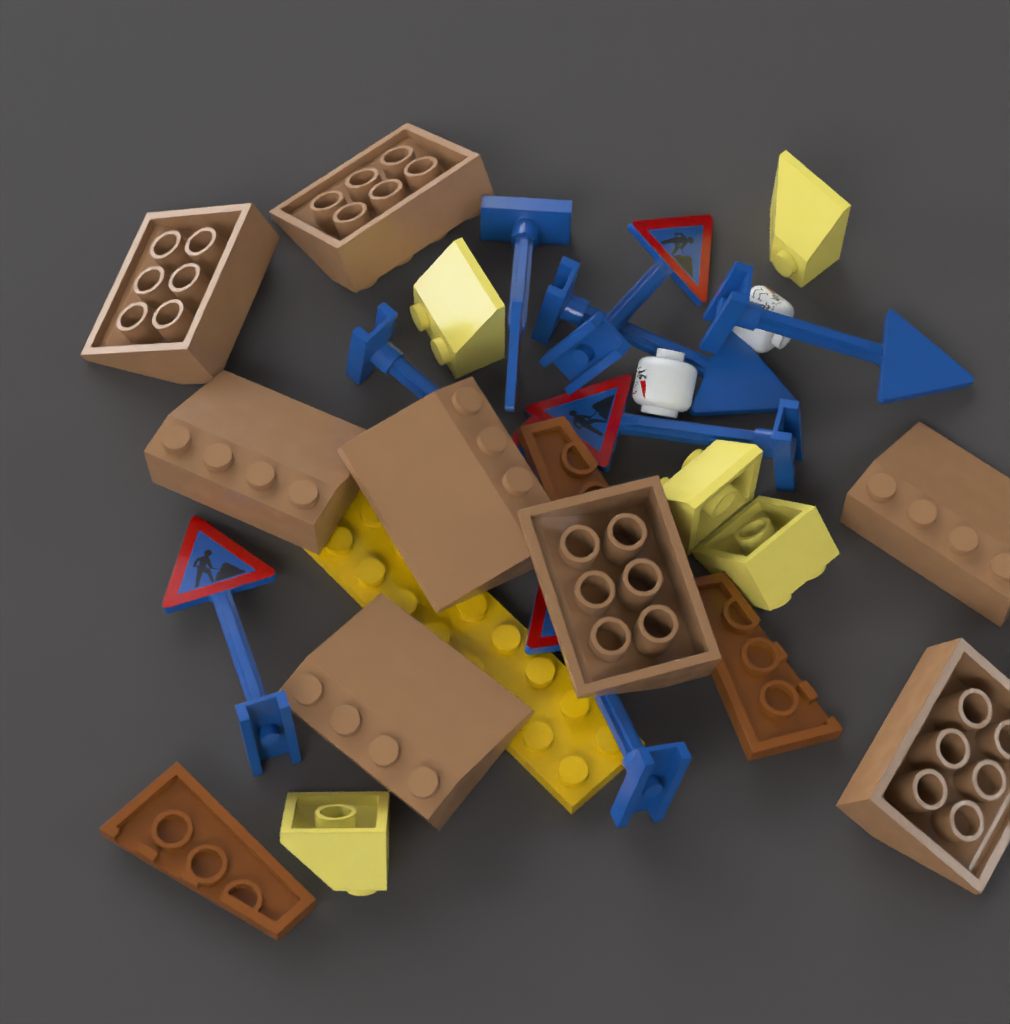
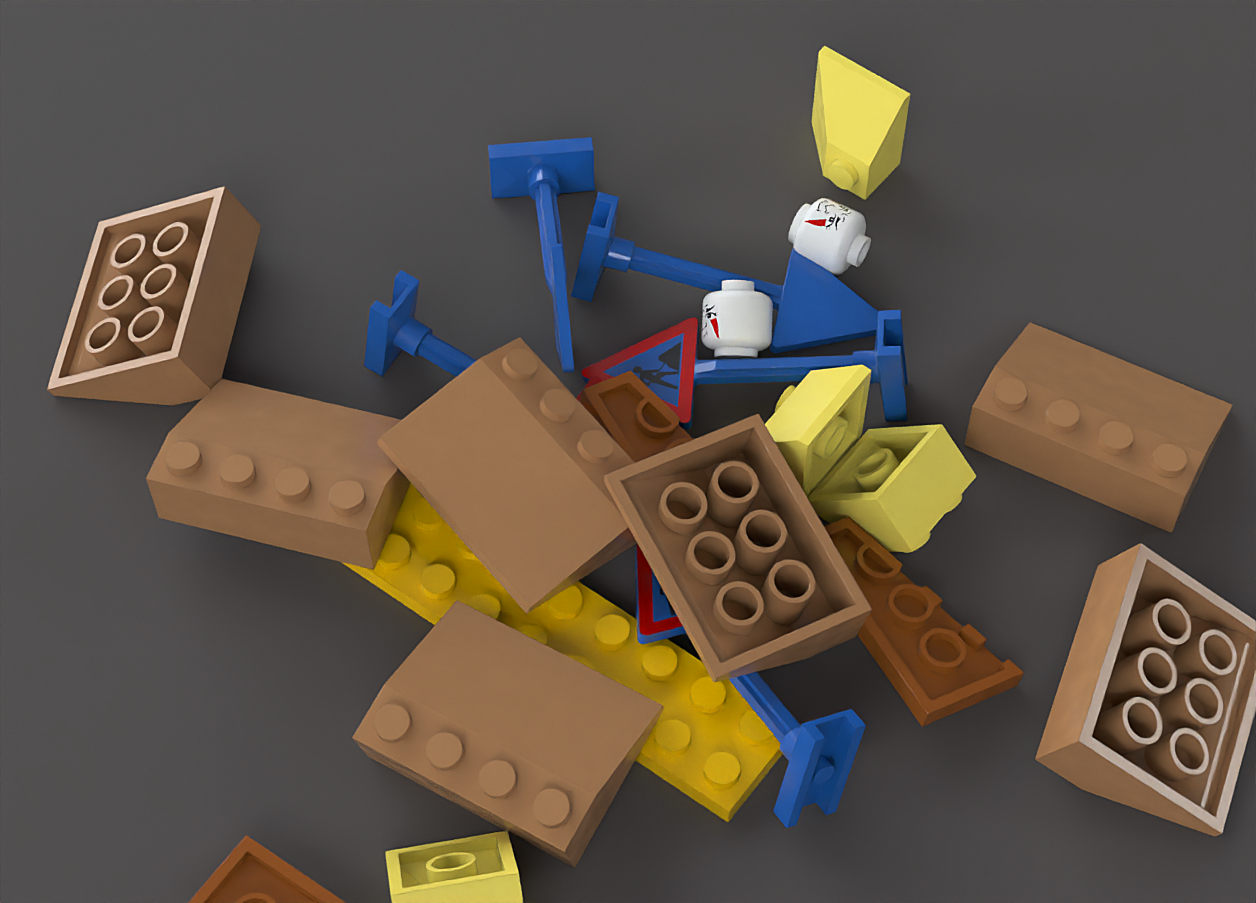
camera: 10 degrees left, 5 degrees down
(212, 571) = (250, 608): blue piece -> none
(385, 205) = (376, 174): medium nougat slope -> none
(460, 311) = (487, 274): light yellow slope -> none
(681, 252) = (724, 178): blue piece -> none
(906, 358) = (1003, 258): blue piece -> none

